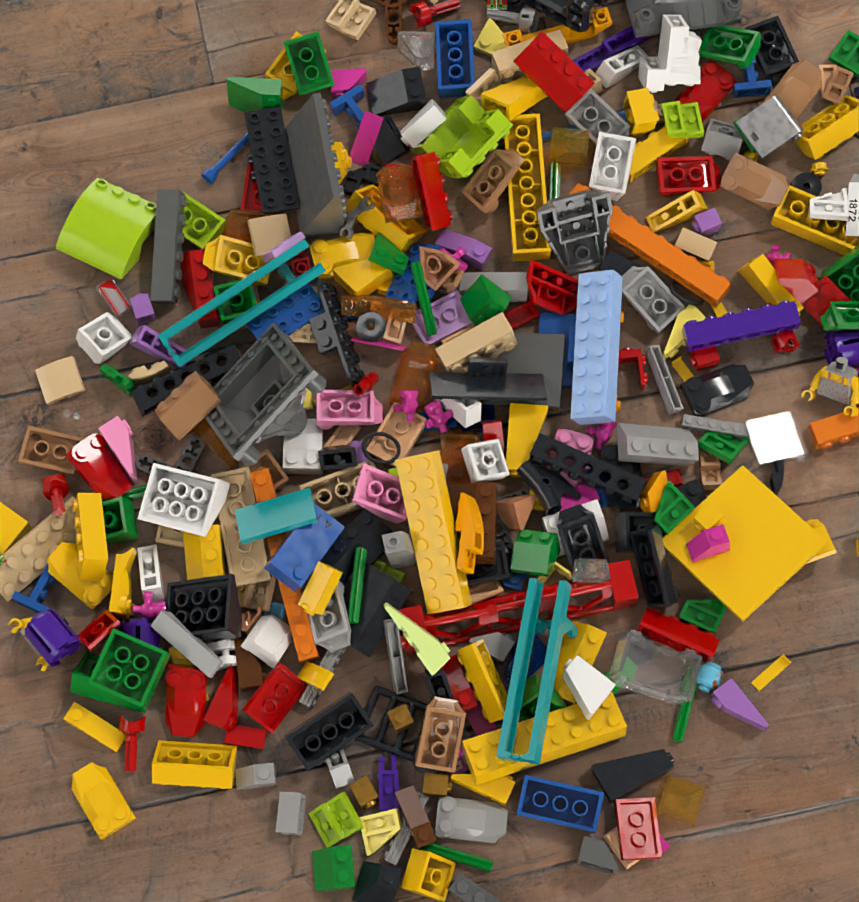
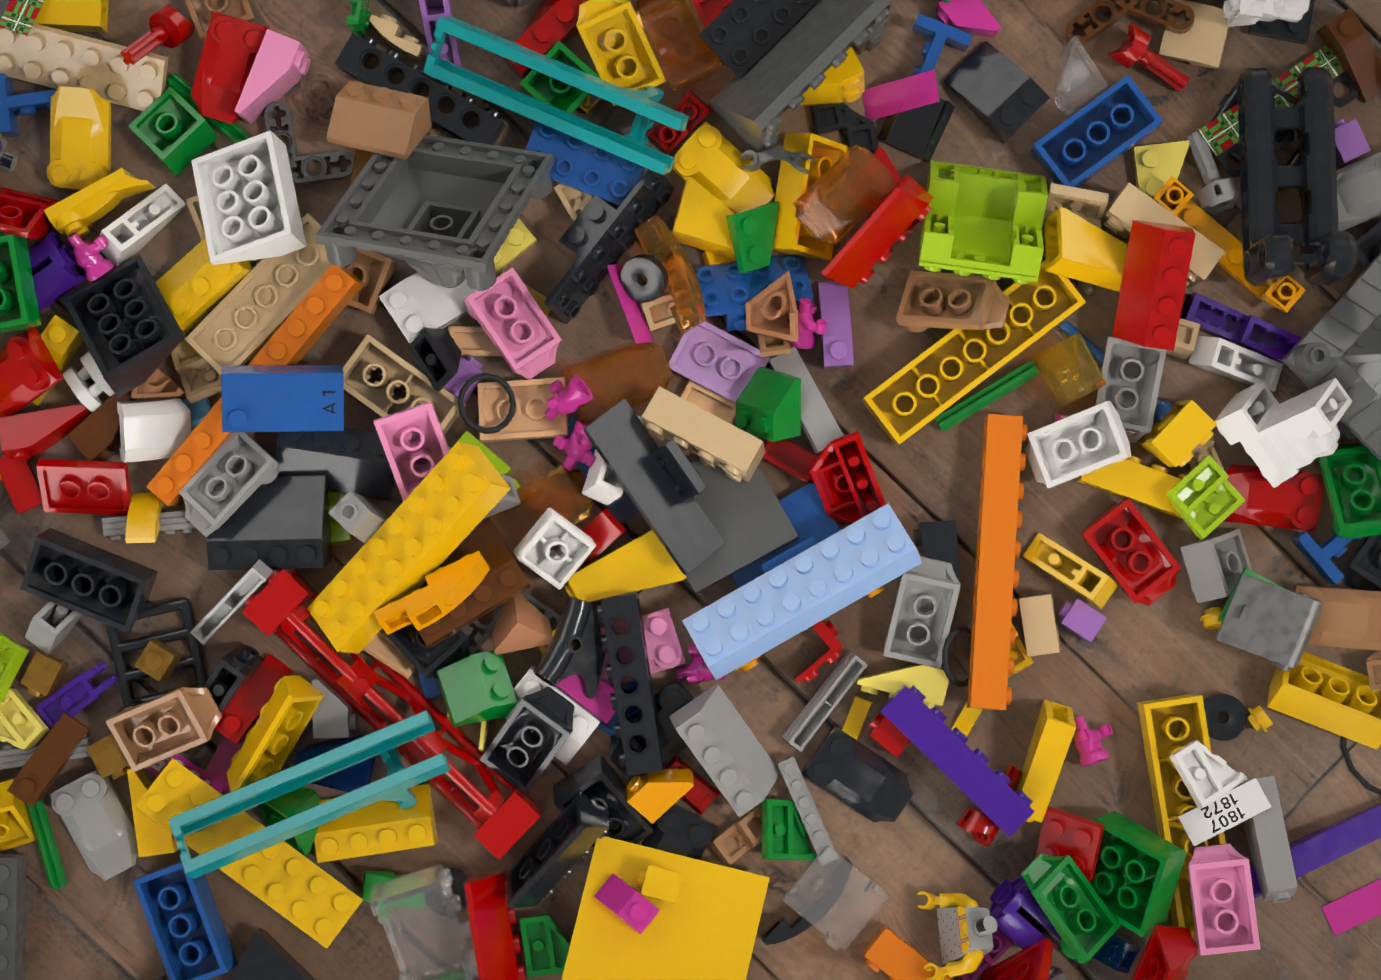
camera: 55 degrees right, 15 degrees up
(90, 536) = (125, 117): yellow wedge -> none
(183, 640) = (66, 347): light grey slope -> none
(268, 232) = (677, 65): tan slope -> none
(276, 515) = (293, 337): teal tile -> none
(283, 246) = (664, 95): lavender tile -> none
(319, 589) = (243, 454): yellow brick -> none
(357, 585) = (285, 494): green axle -> none
(366, 383) = (562, 325): red pin -> none
(423, 124) = (973, 157): white slope -> none
(423, 298) = (722, 323): green axle -> none
(427, 647) = (255, 636): yellowish green wedge -> none
(577, 228) = (953, 458): dark grey wedge -> none
(586, 685) = (341, 869): white slope -> none
(590, 571) = (493, 777): clear slope -> none
(672, 508) = (648, 826): green wing -> none
(754, 182) = (1179, 649): medium nougat slope -> none
(797, 277) = (1074, 789): red slope -> none

